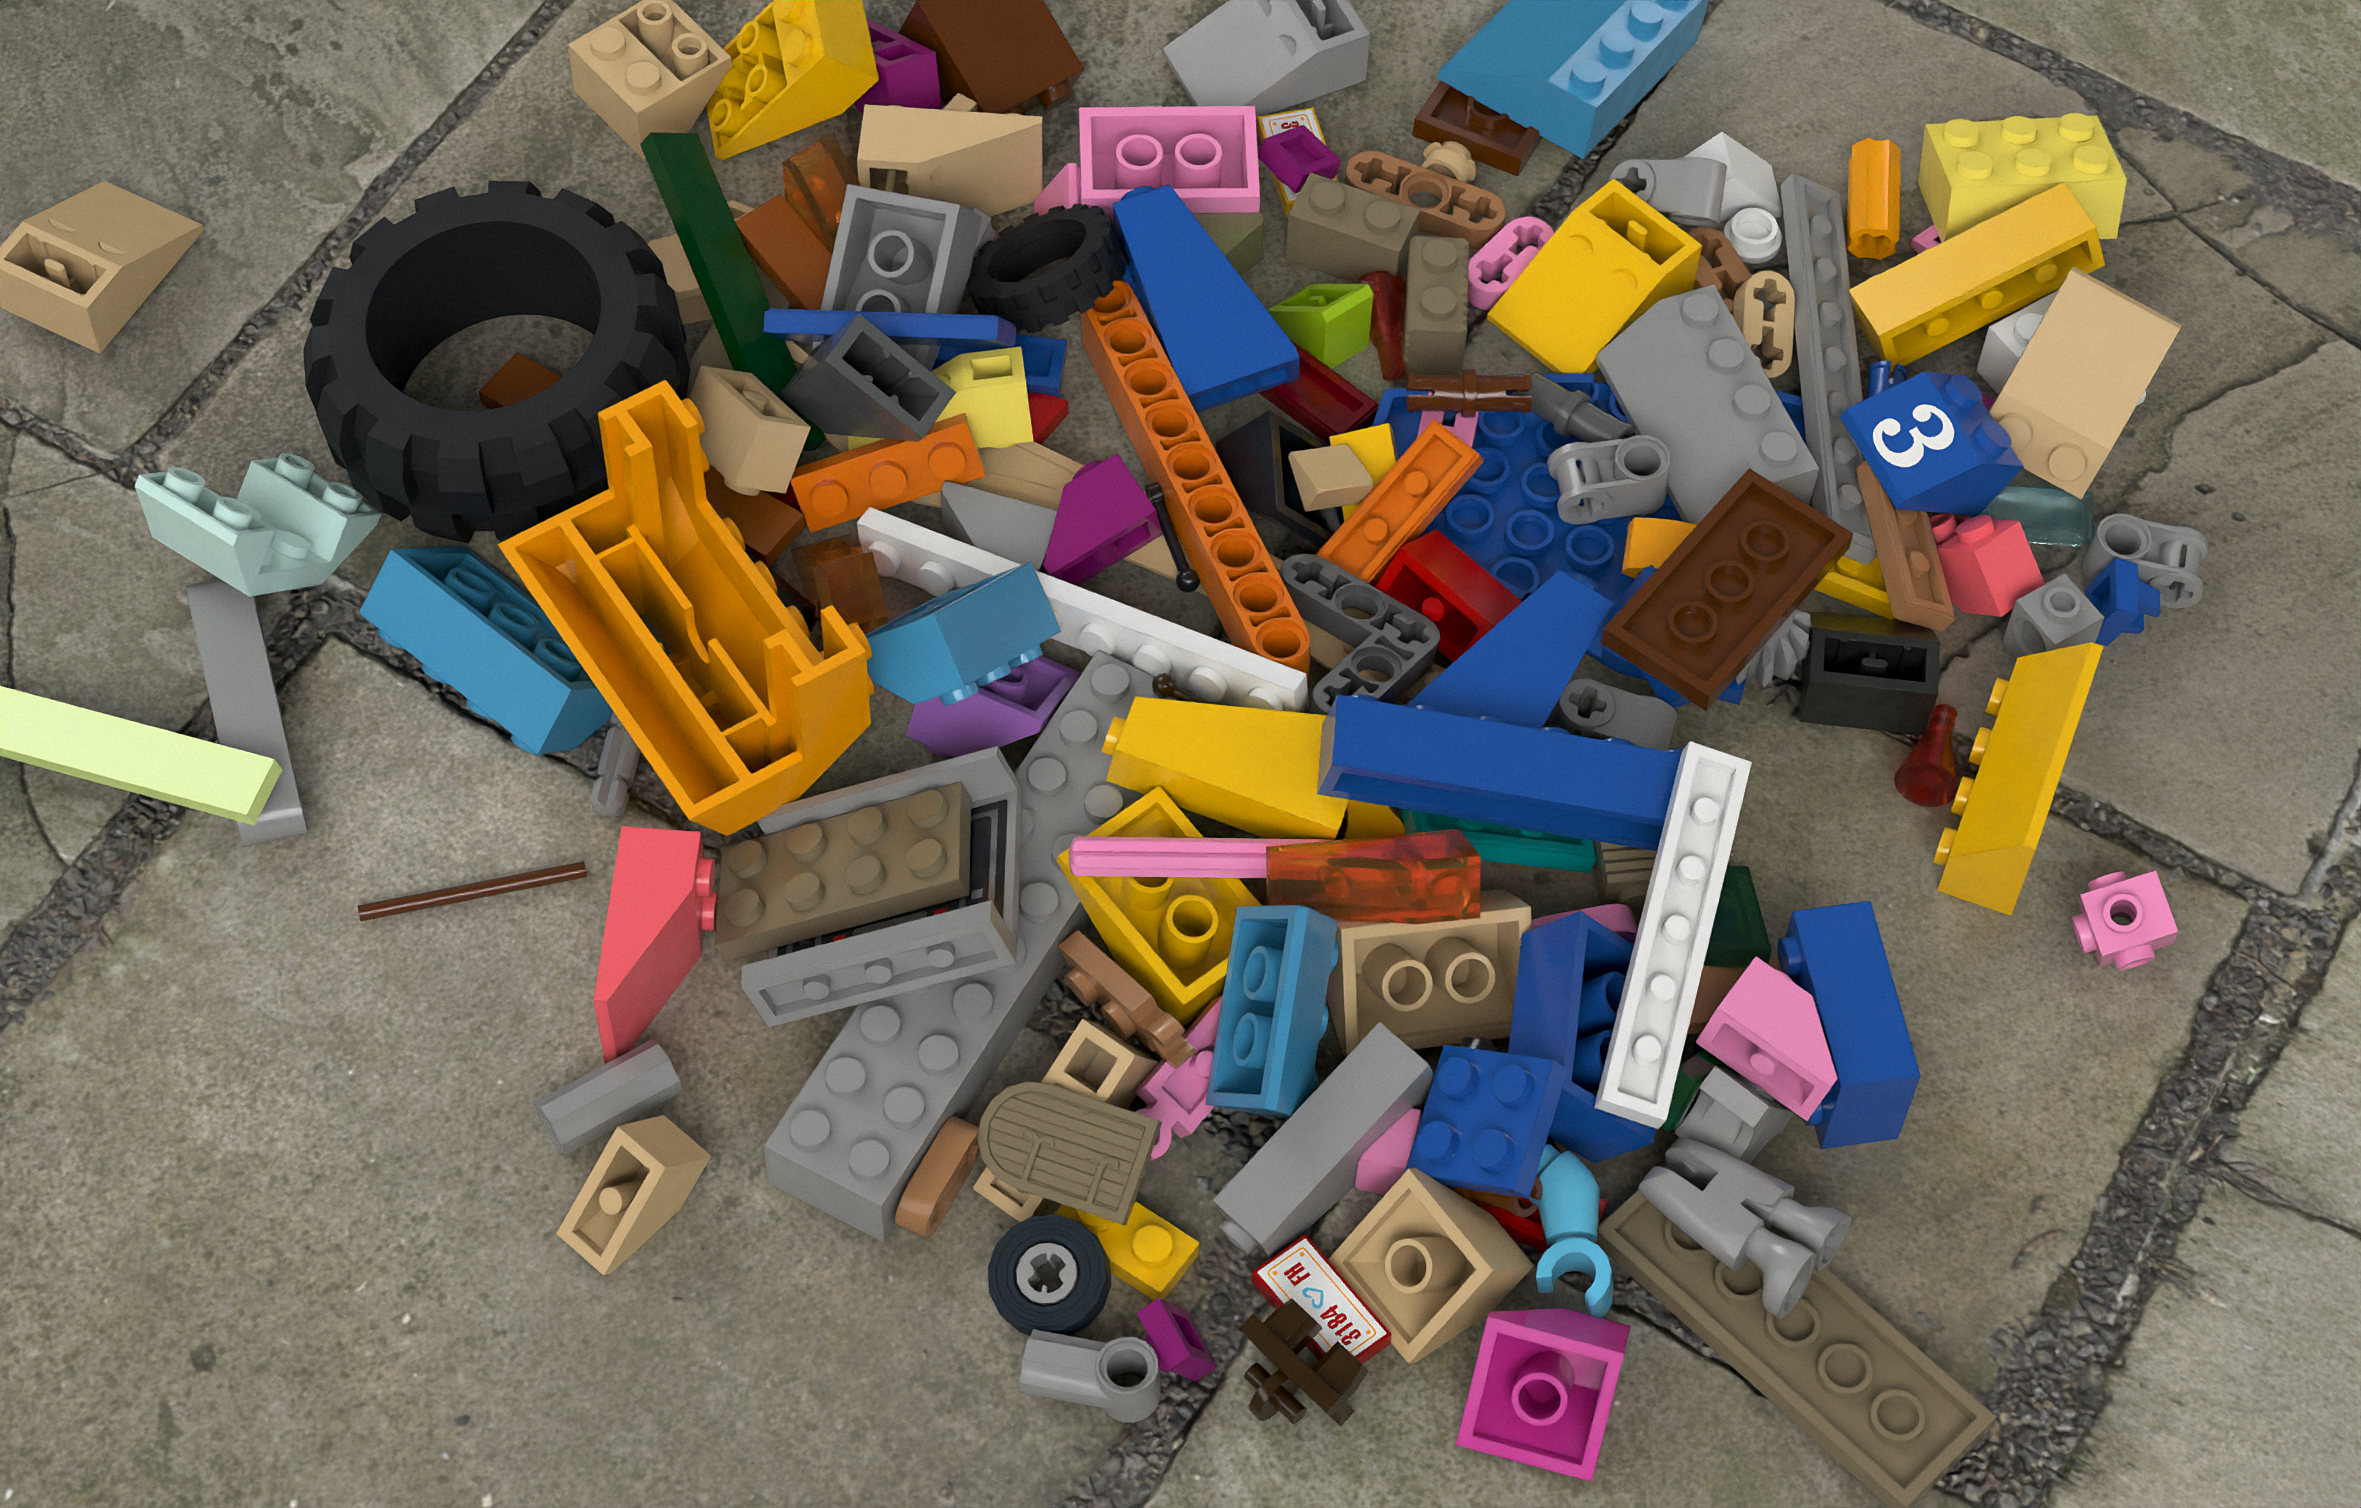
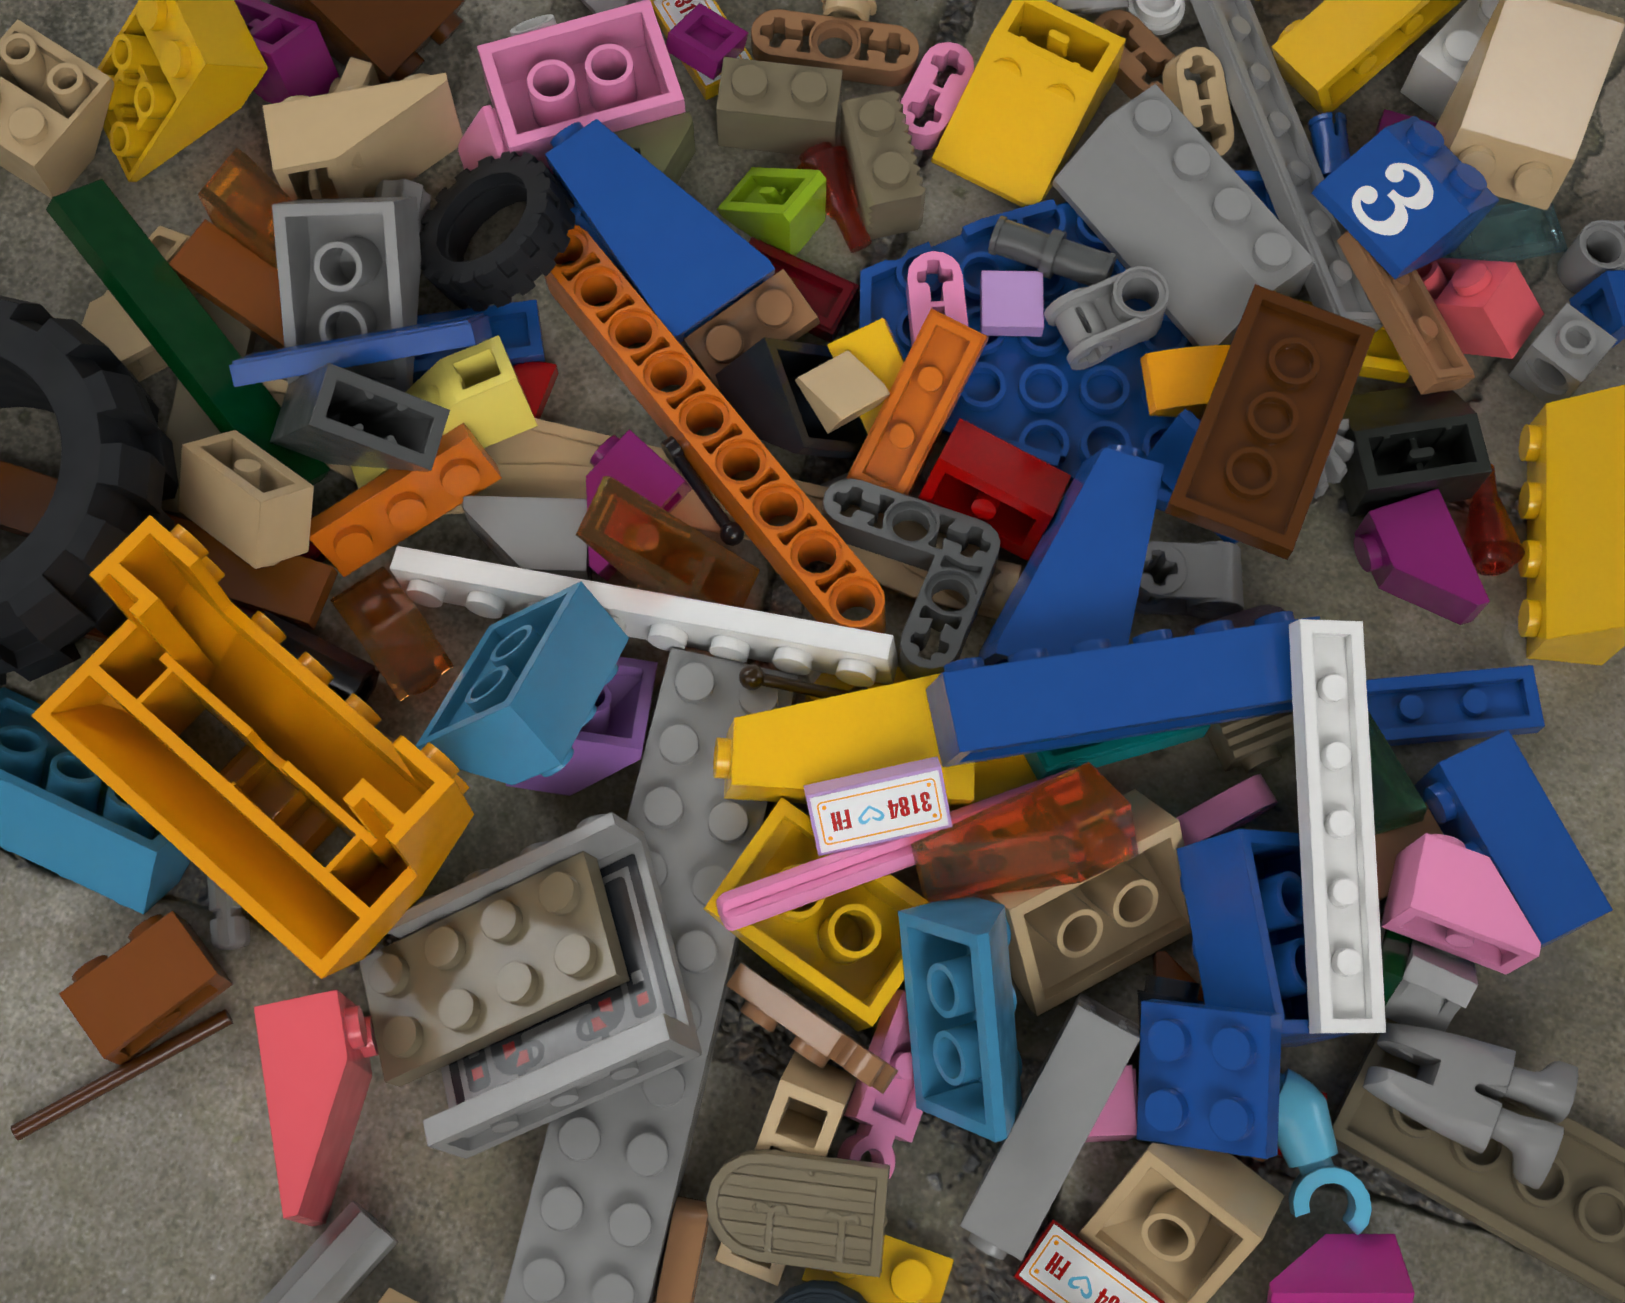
camera: 15 degrees left, 15 degrees up
(520, 818) = (144, 987): none -> dark orange brick
(1110, 554) = (661, 550): none -> clear orange slope
(1245, 805) = (878, 806): none -> tile
(1290, 396) = (770, 311): none -> medium nougat plate
(1469, 393) = (951, 263): reddish brown pin -> none
(1520, 449) = (1011, 303): none -> lavender tile
(1787, 886) = (1456, 705): none -> blue plate
(1852, 766) = (1421, 557): none -> magenta slope

